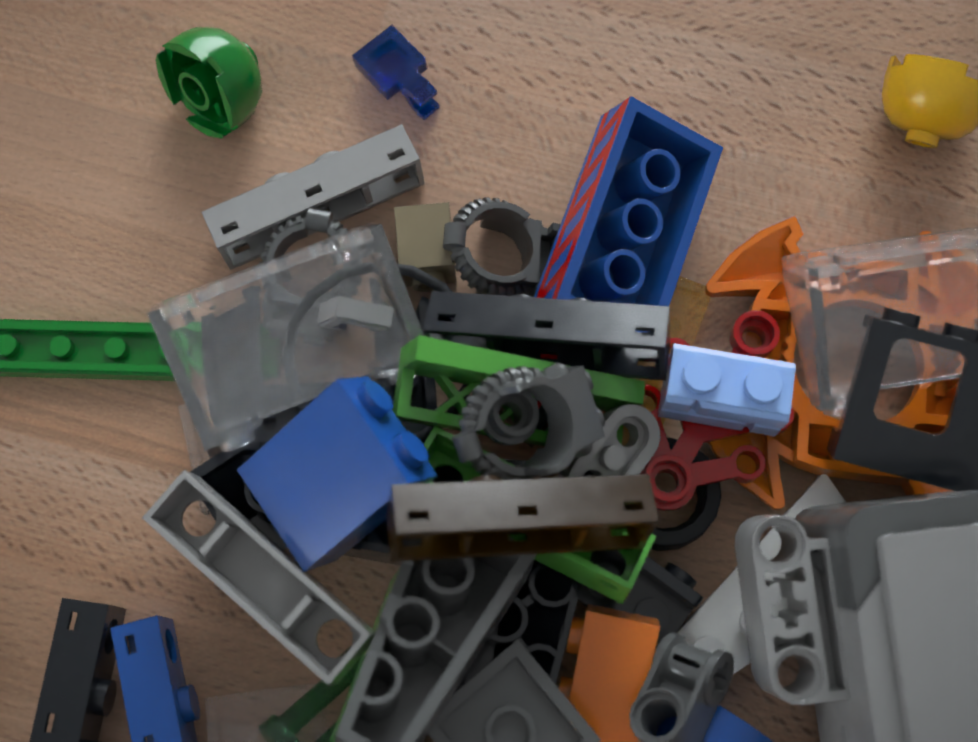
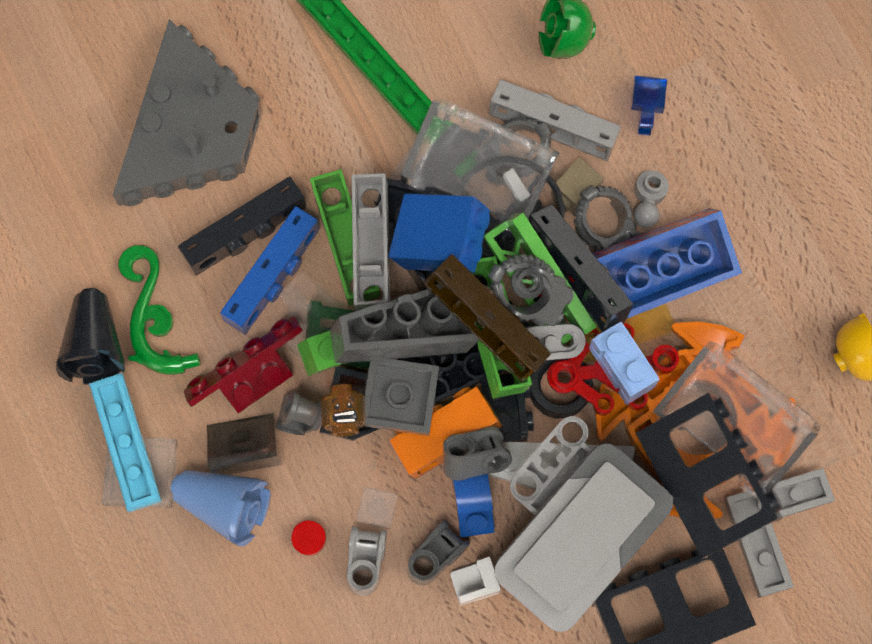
camera: 45 degrees right, 0 degrees up
(192, 595) = (338, 228): none -> bright green piece
(534, 193) = (647, 213): none -> light grey plate

